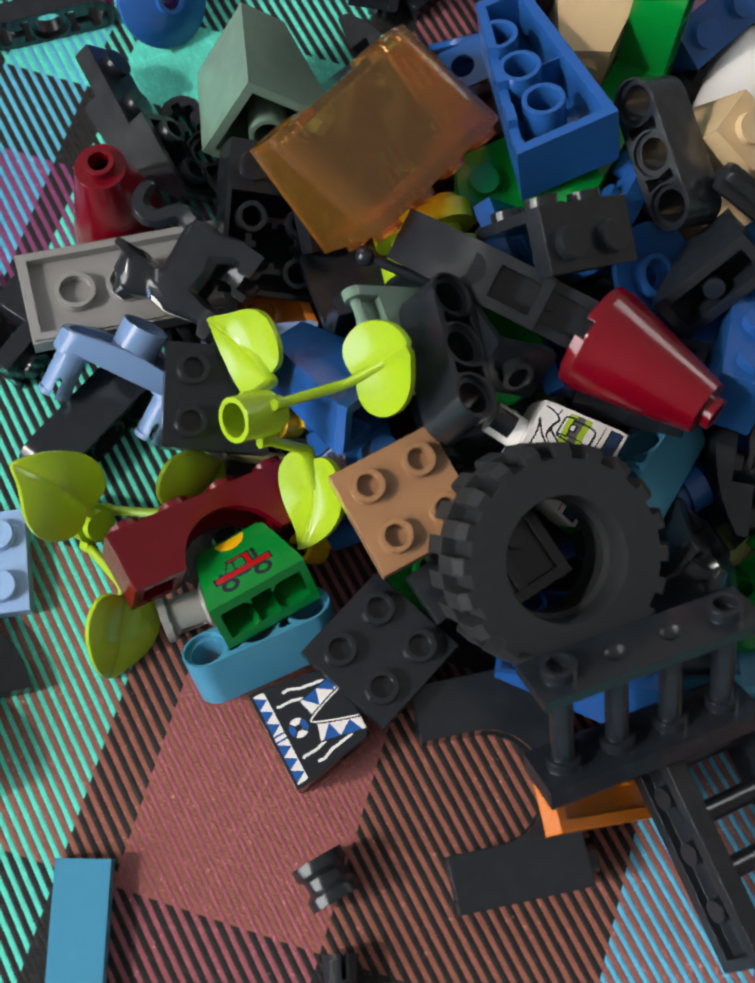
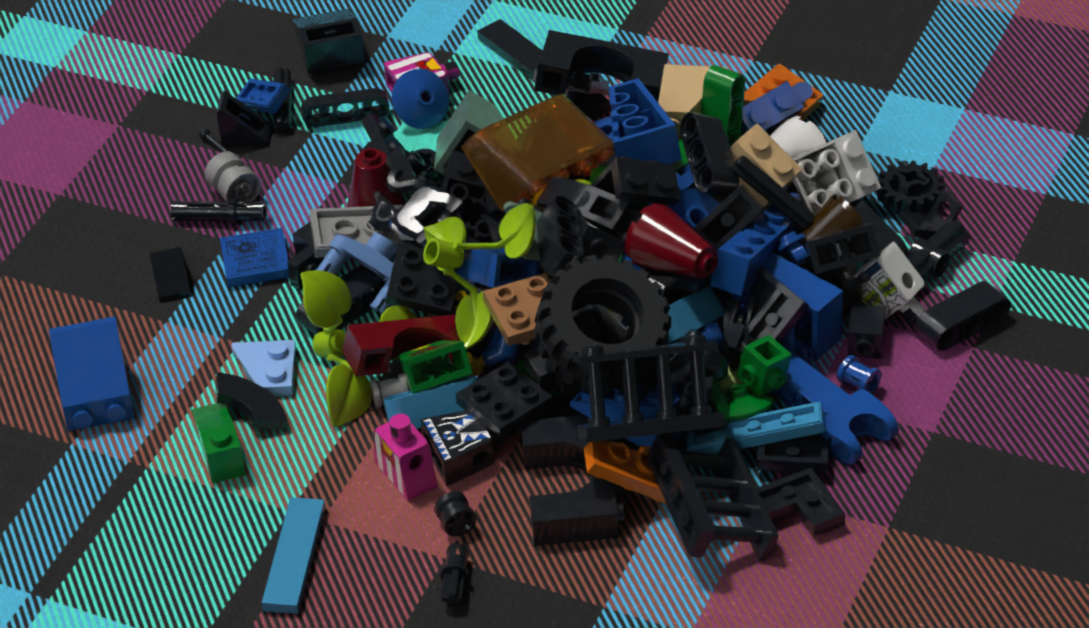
camera: 10 degrees right, 30 degrees down
(231, 773) = (400, 447): none -> dark pink torso

